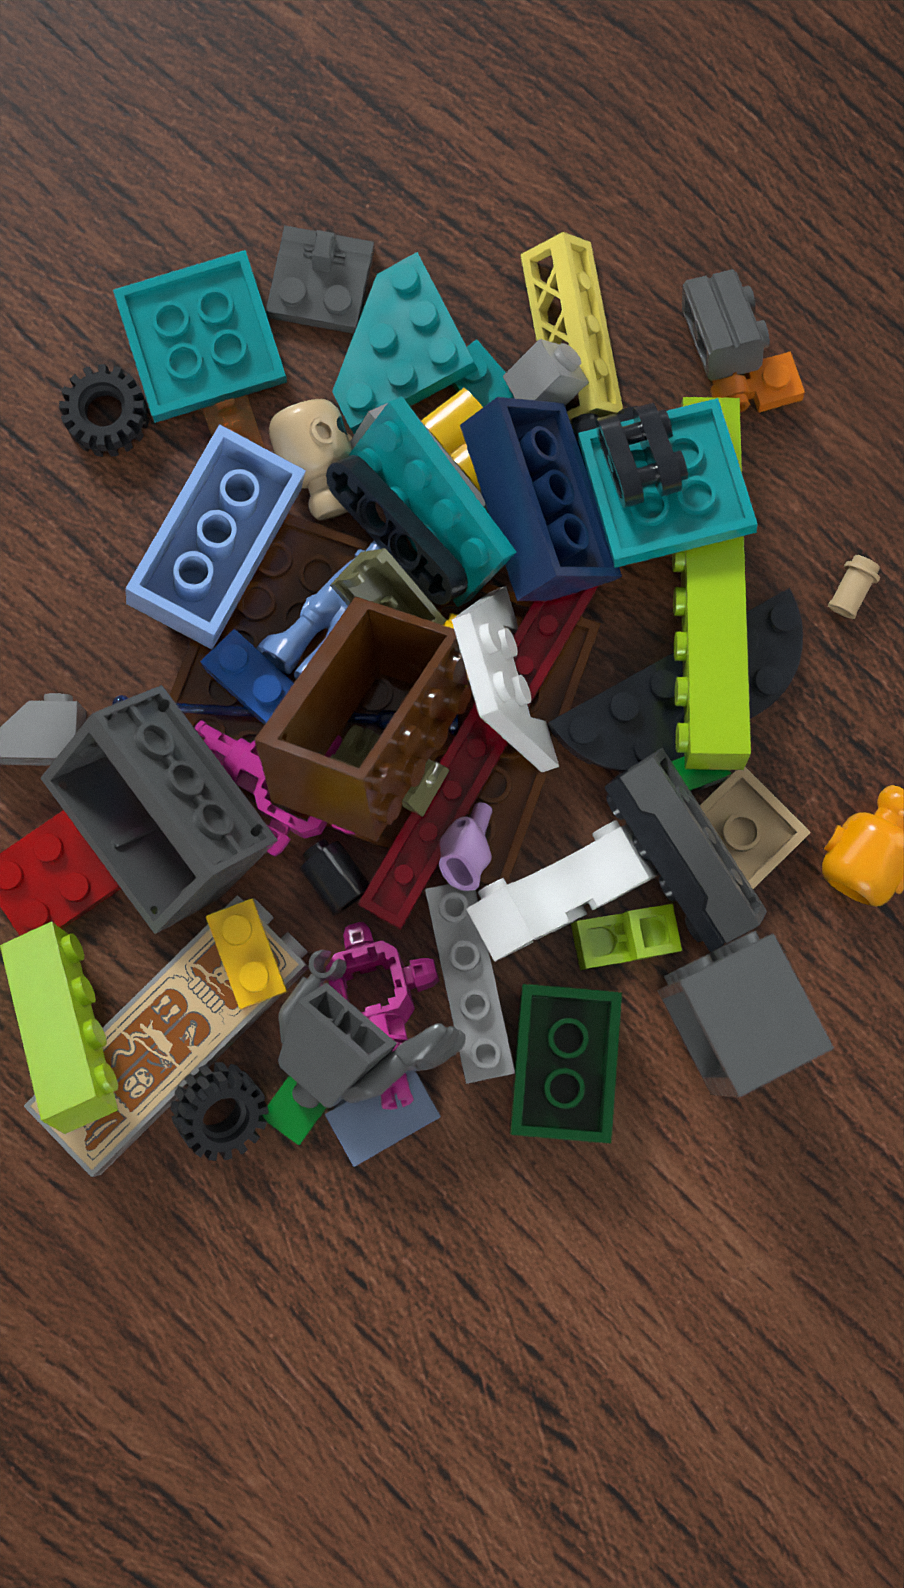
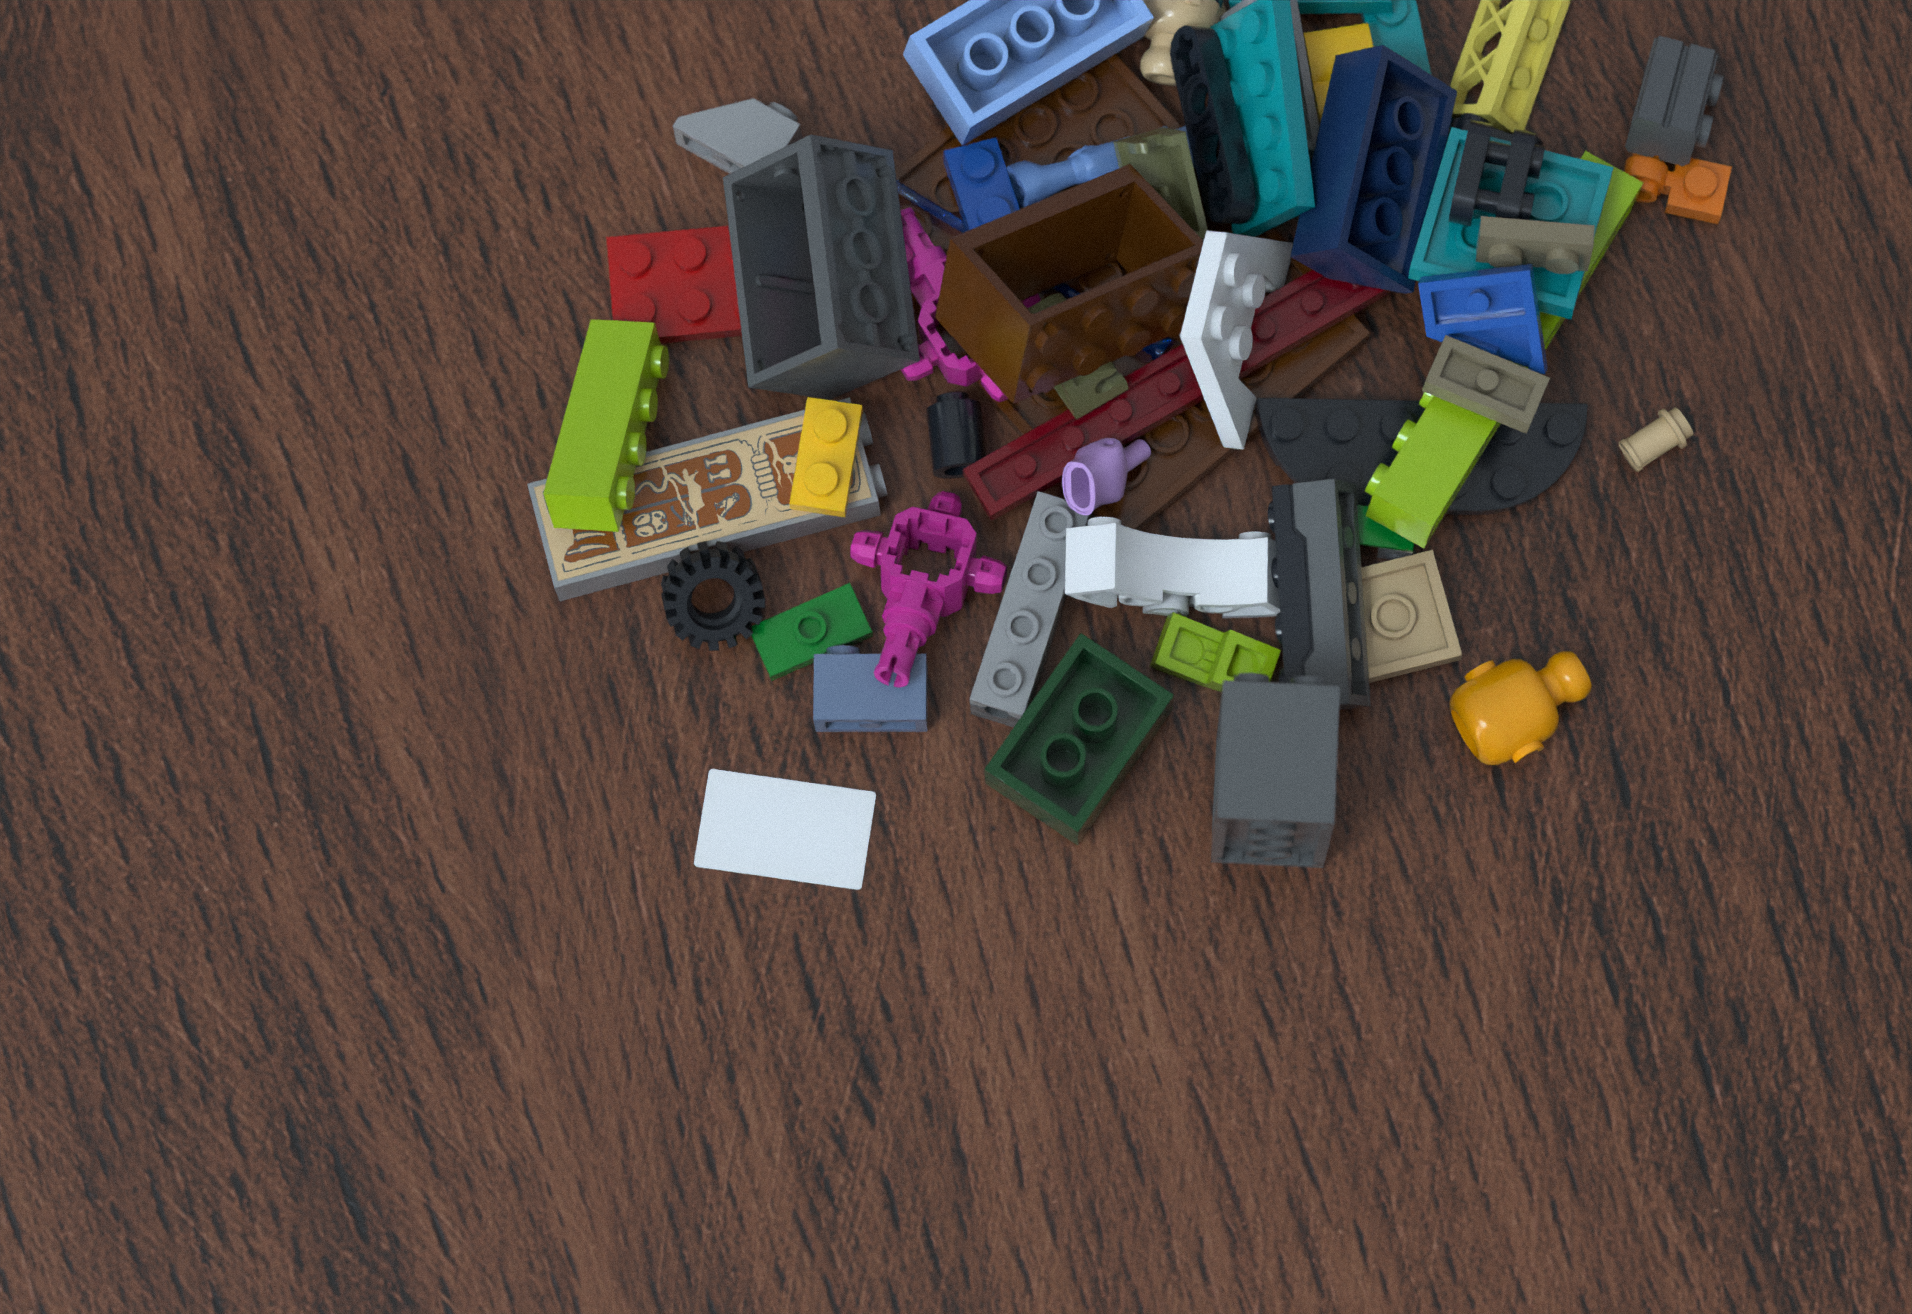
camera: 35 degrees right, 5 degrees down
(341, 1052) = (865, 598): dark grey torso -> none
(376, 1255) = (785, 829): none -> white sticker
(547, 373) = (1459, 54): light grey brick -> none
(694, 563) = (1487, 310): none -> blue wing
(717, 483) = (1544, 244): none -> dark tan plate
(726, 619) = (1485, 384): none -> dark tan plate

